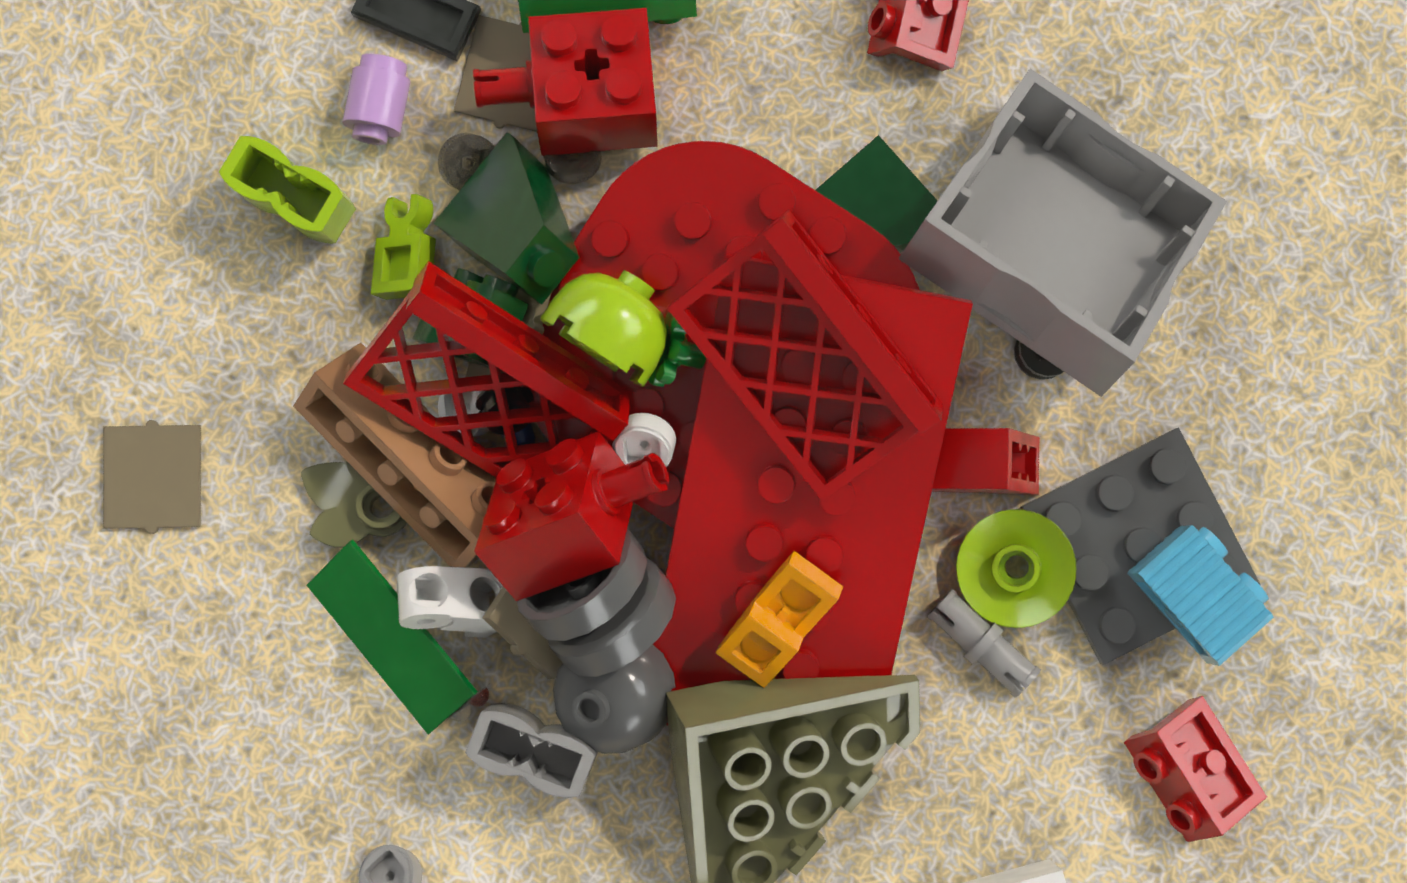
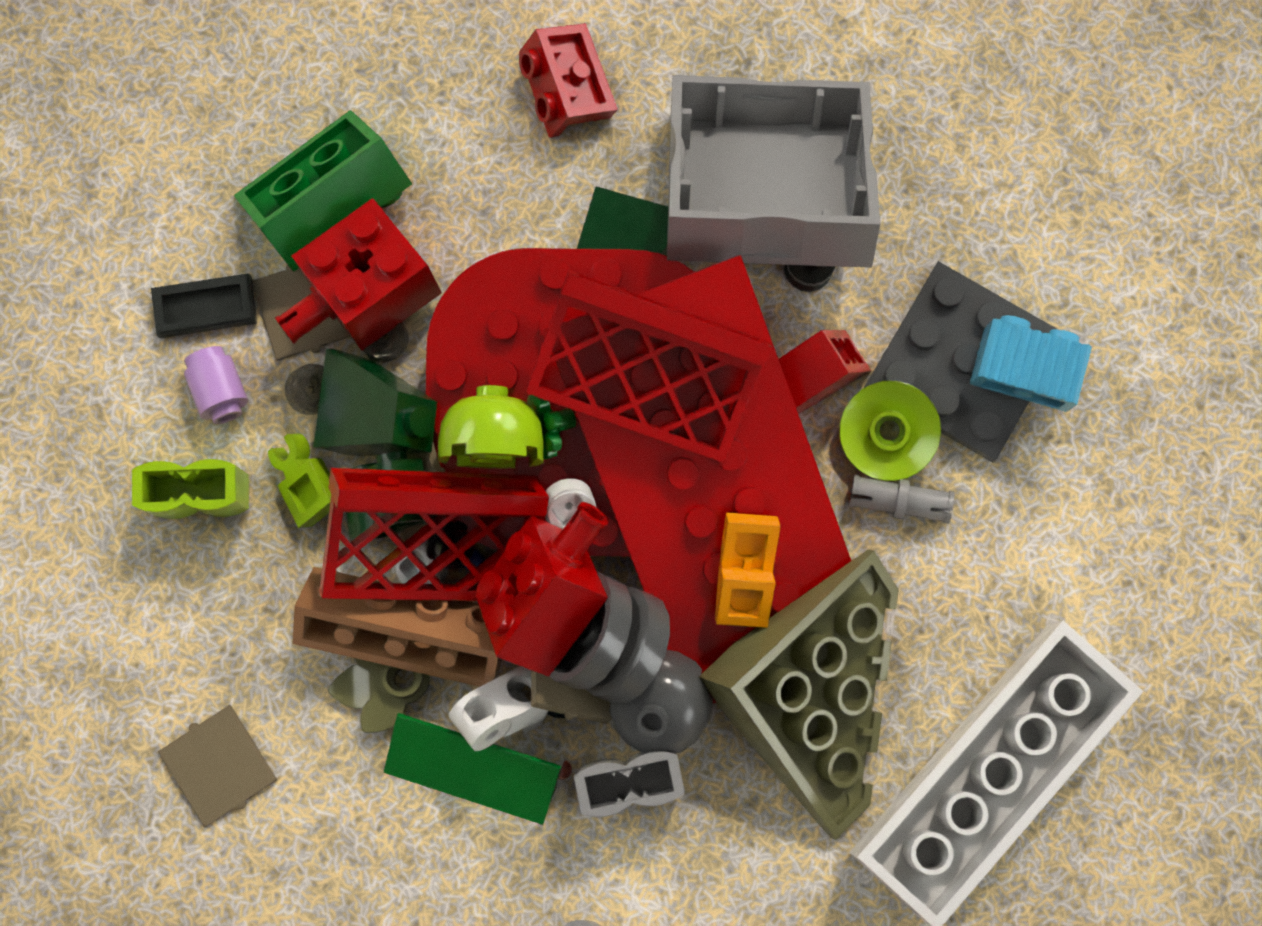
camera: 35 degrees left, 5 degrees down
(1196, 771) = (1109, 494): bracket -> none

